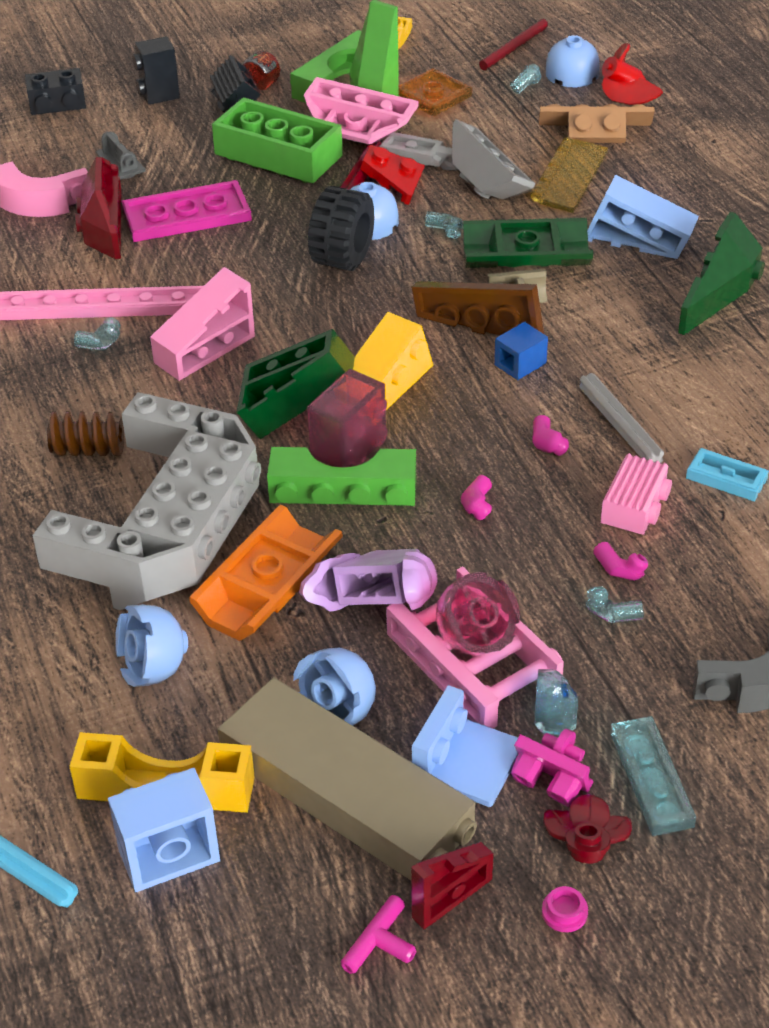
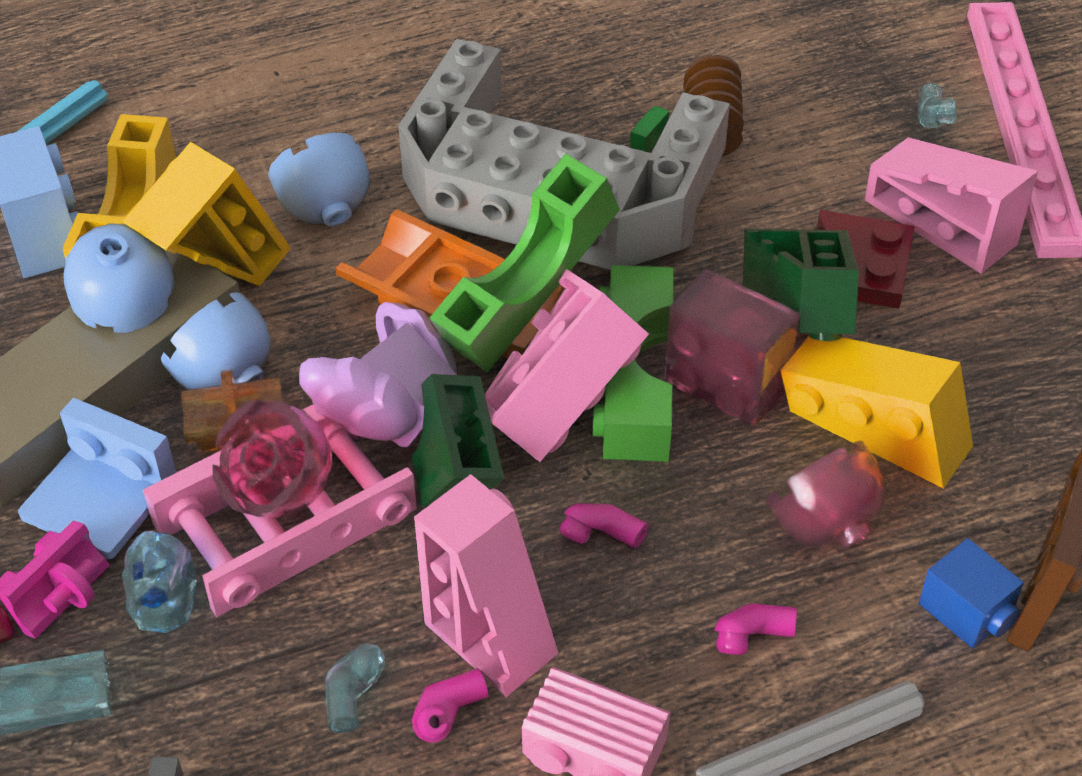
camera: 90 degrees right, 5 degrees up
(115, 469) = (649, 129): none -> green tile
(225, 376) = (880, 254): none -> dark red wing
(230, 672) = (209, 216): none -> yellow wedge
(271, 459) = (564, 221): none -> bright green arch
(288, 729) = (118, 278): none -> light blue cylinder
(371, 486) = (563, 367): none -> bright pink wedge
(397, 679) = (210, 407): none -> clear orange hips
(445, 543) = (455, 437): none -> dark green arch
(460, 392) = (832, 498): none -> clear pink cylinder
(556, 521) = (482, 585): none -> bright pink wedge

